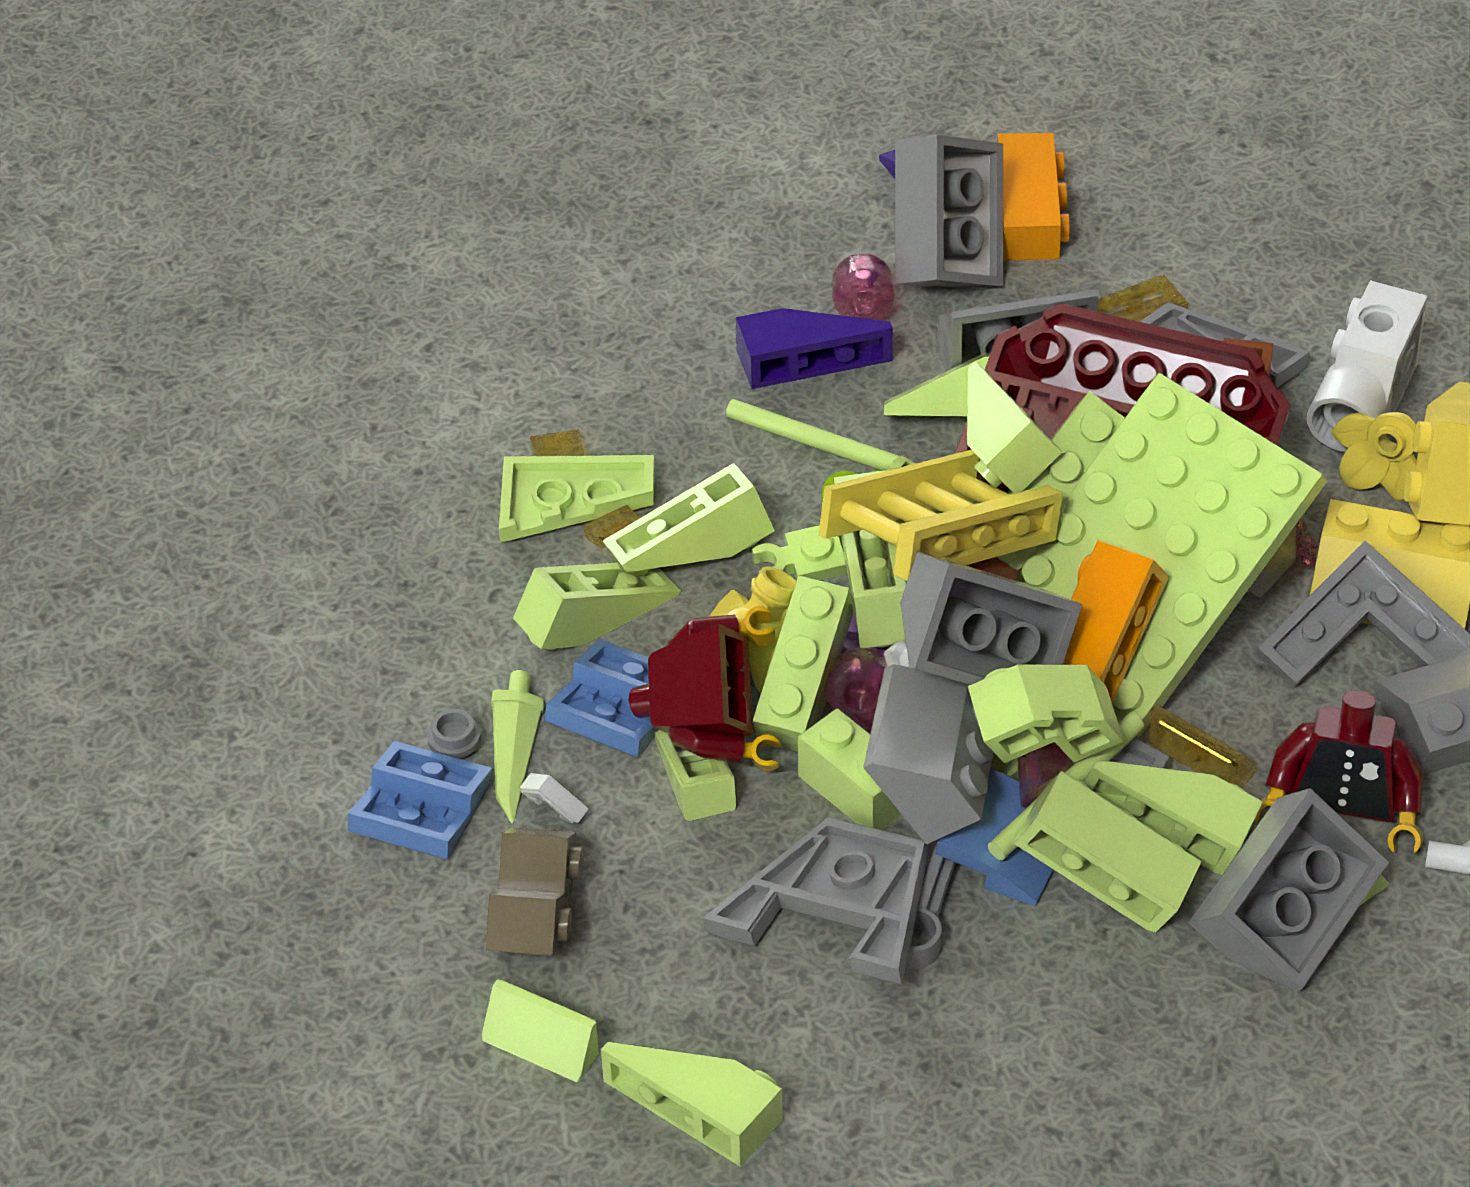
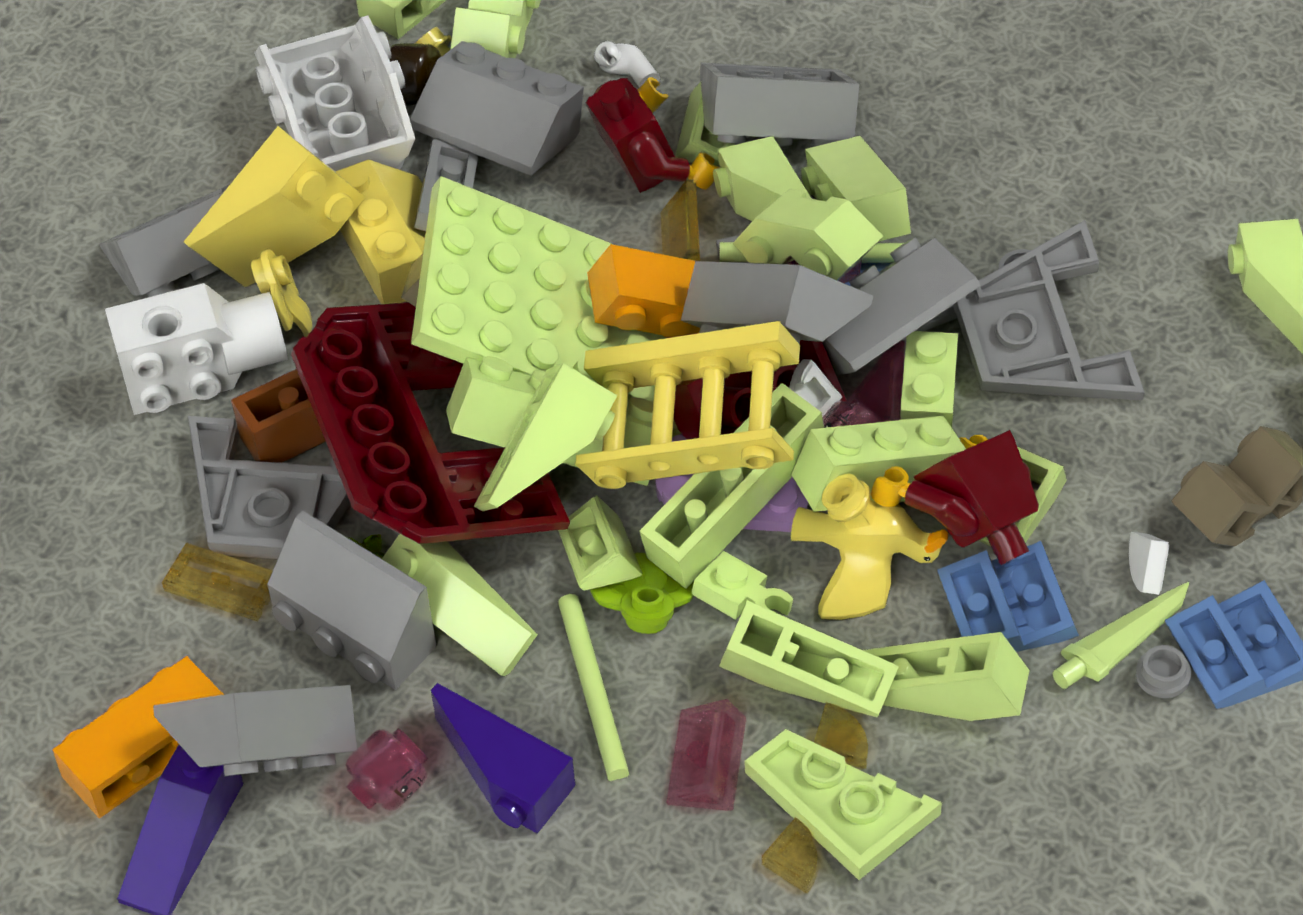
camera: 130 degrees left, 5 degrees up
(682, 453) = (707, 756): none -> clear pink slope

